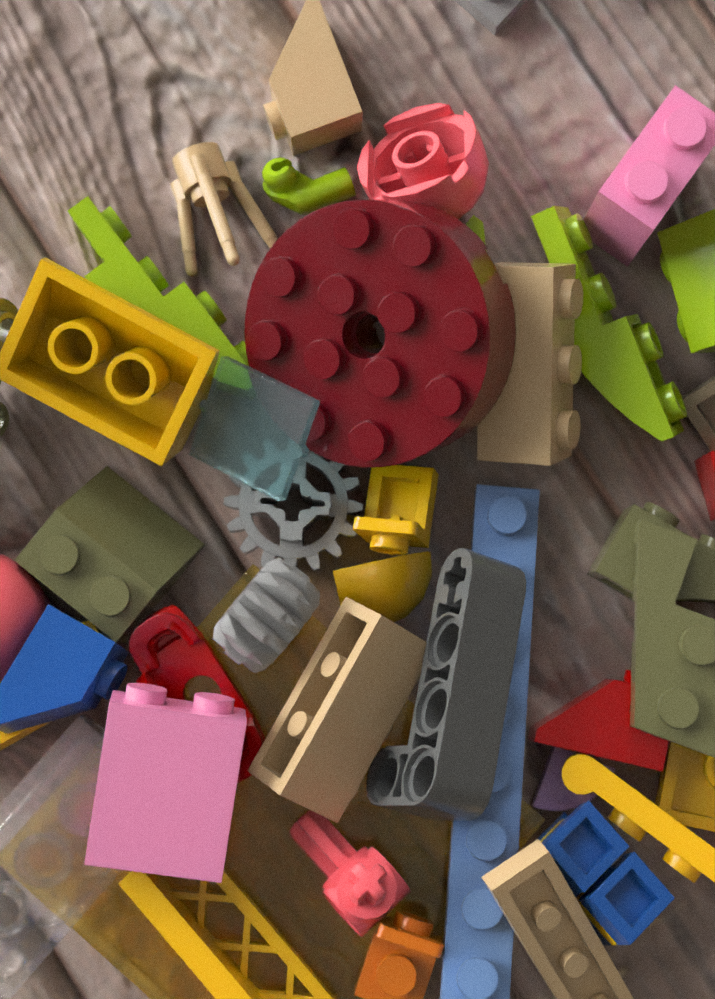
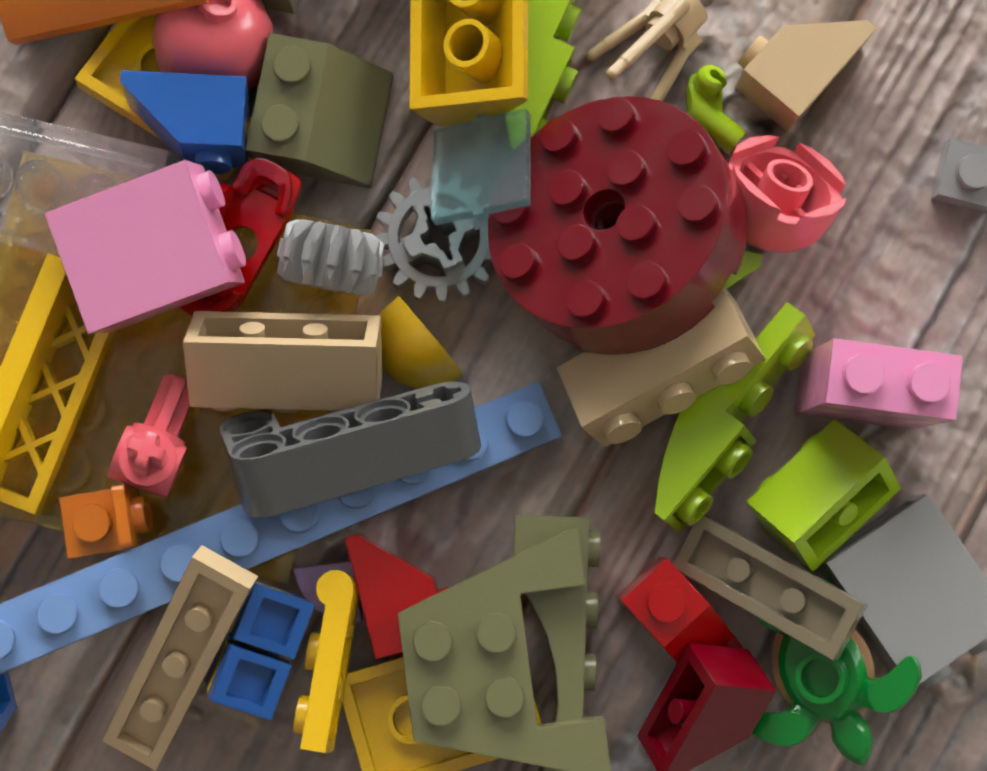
camera: 65 degrees right, 0 degrees up
(398, 508) = (481, 326): yellow bracket -> none

